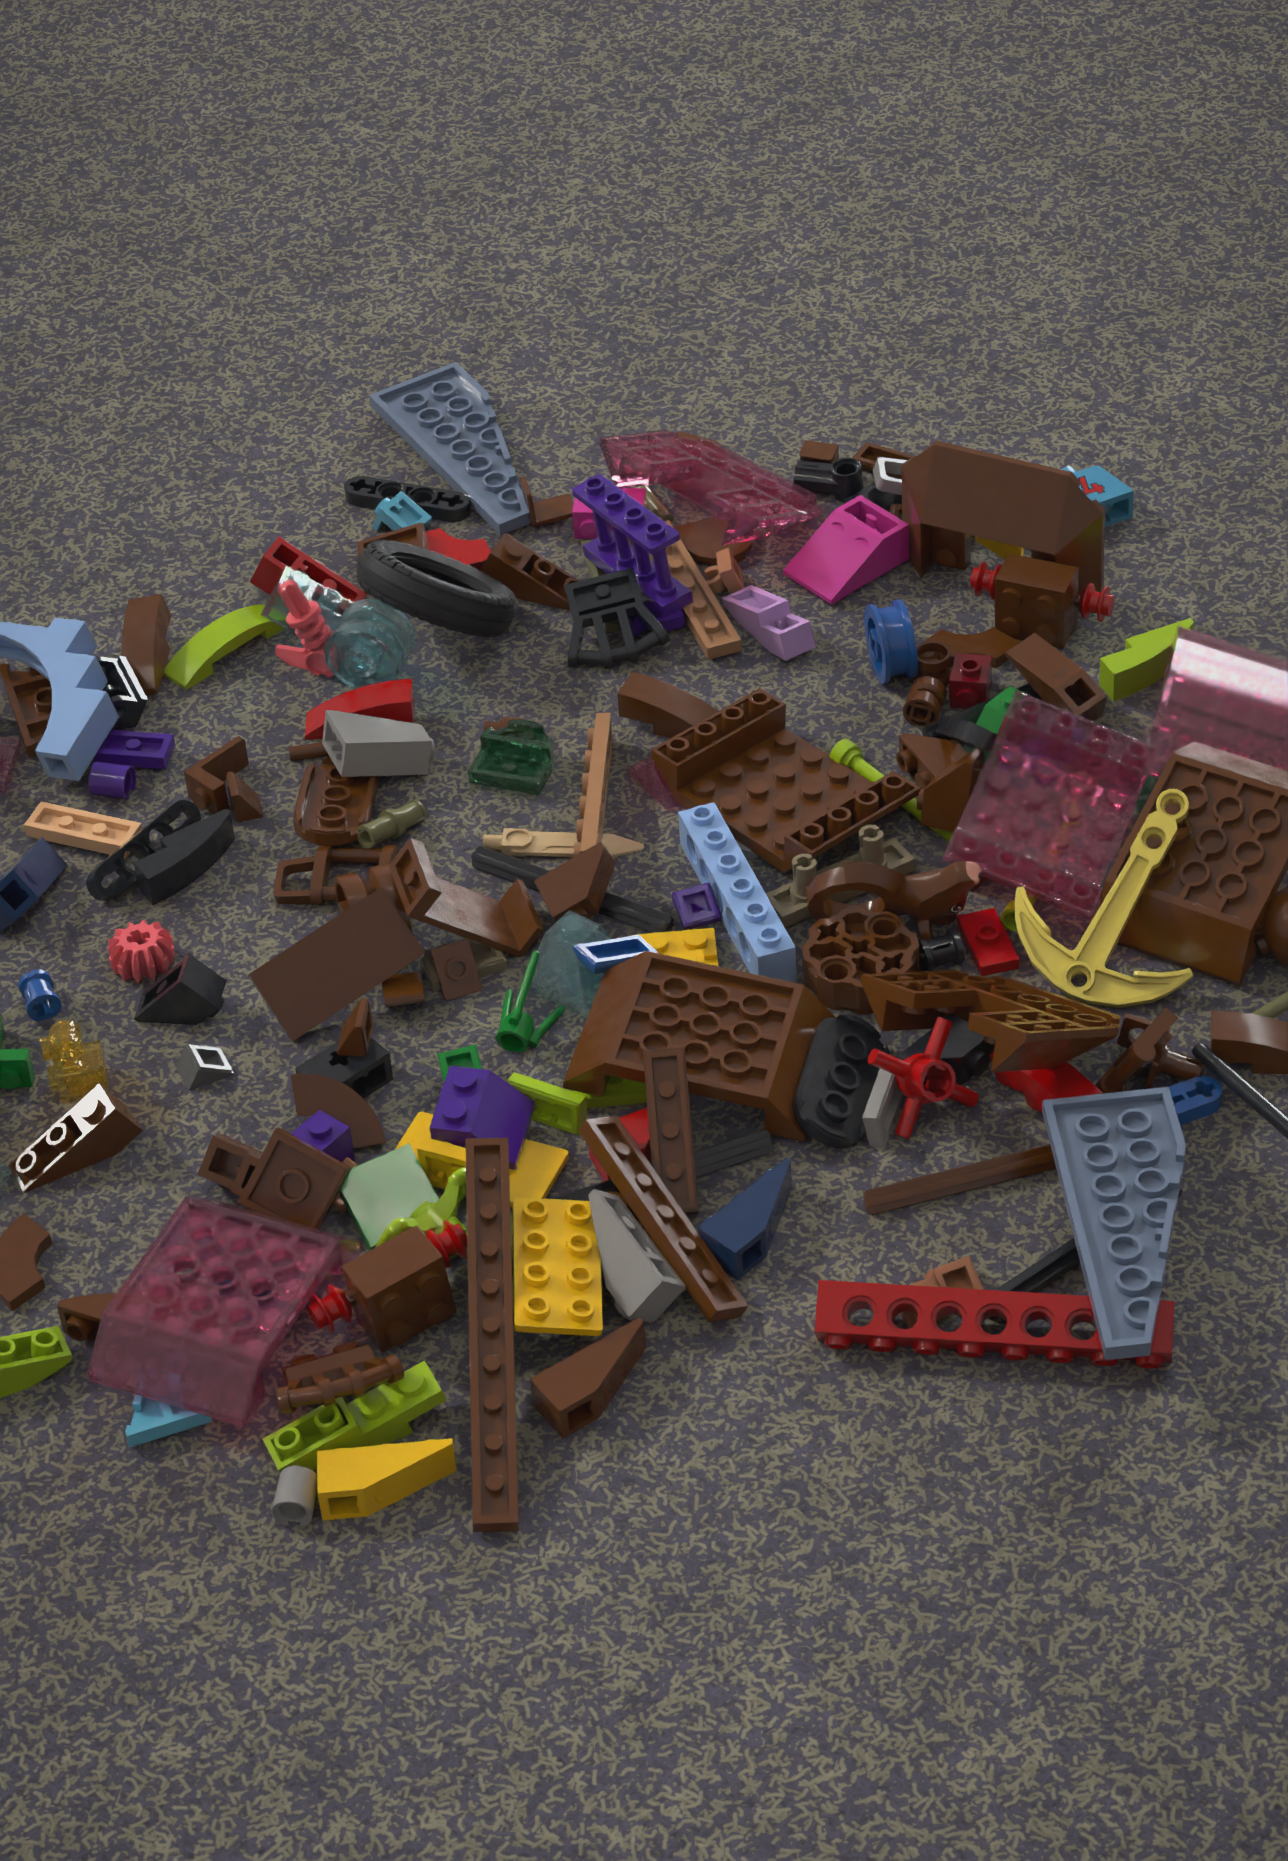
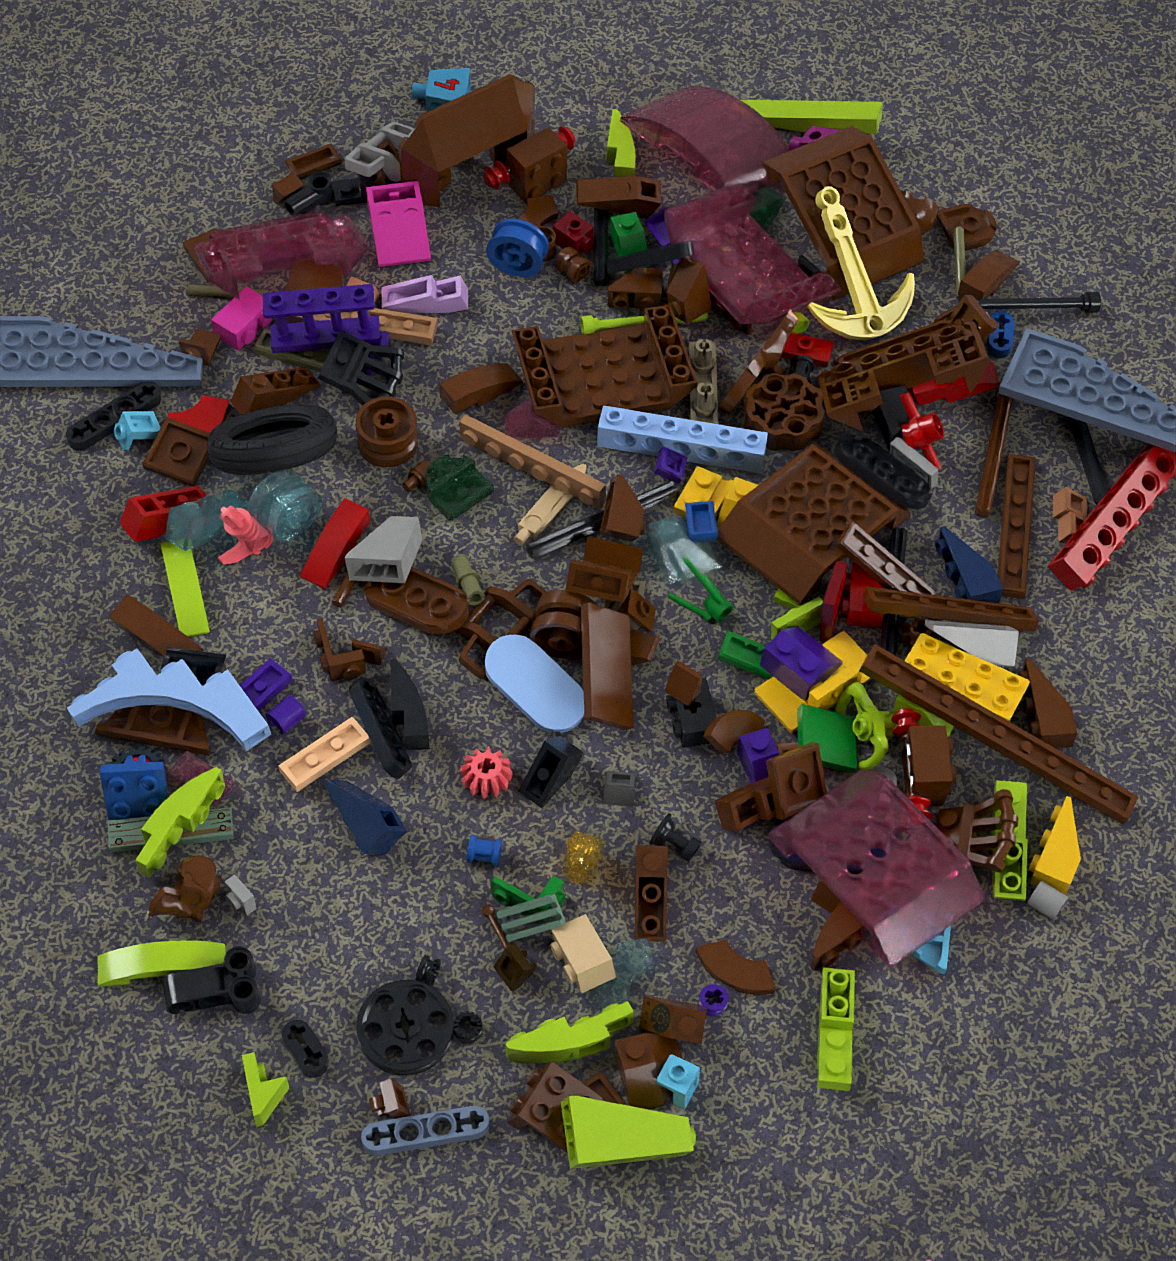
camera: 65 degrees left, 15 degrees up
(157, 1117) = (666, 832): none -> black piece
(285, 914) = (534, 683): none -> light blue tile
(541, 674) = (386, 431): none -> reddish brown wheel
(581, 1098) = (832, 600): none -> dark red tile
(875, 1243) = (1016, 525): none -> reddish brown tile

